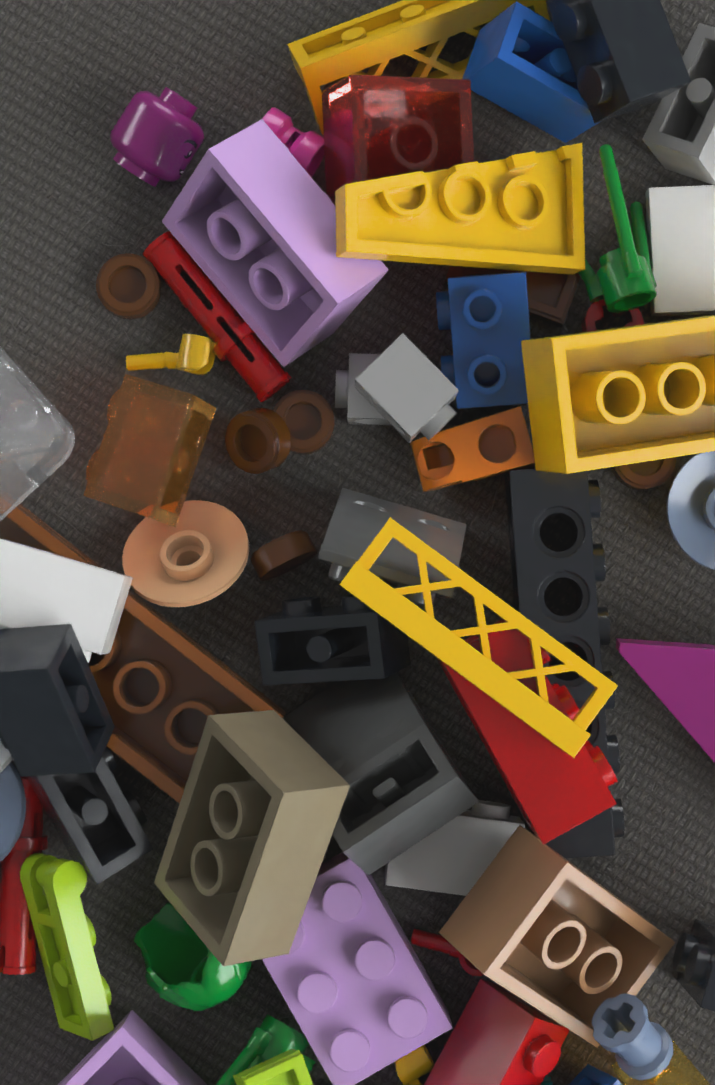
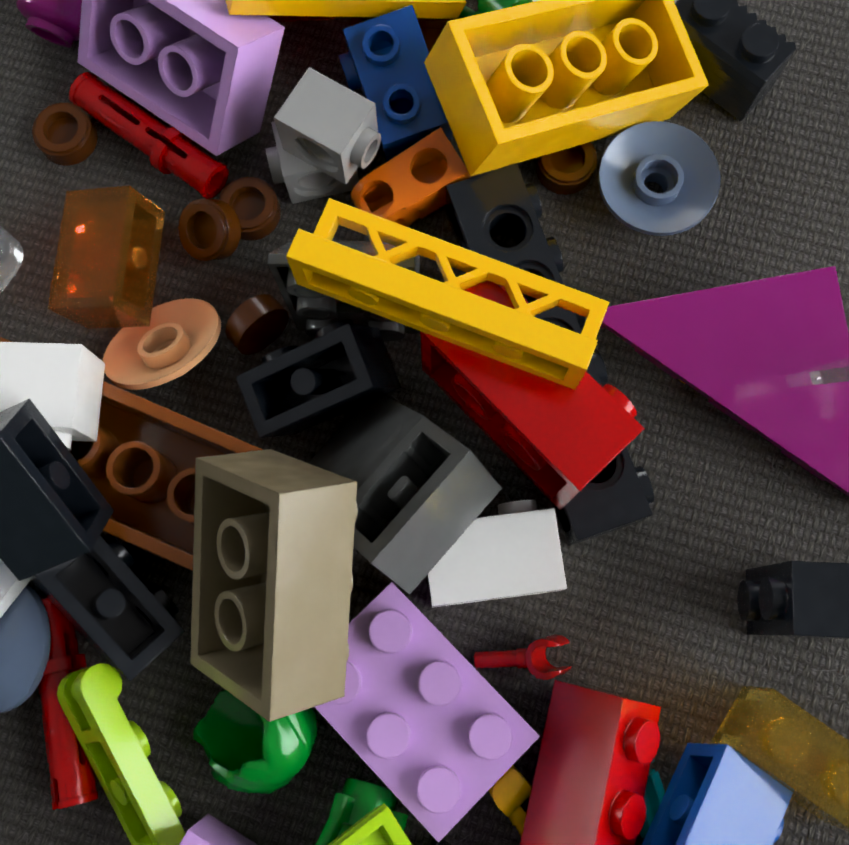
camera: 10 degrees left, 10 degrees down
(194, 357) = (133, 172): yellow hand -> none
(553, 934) = (619, 604): medium nougat brick -> none
(639, 1045) = (720, 685): sand blue bush -> none

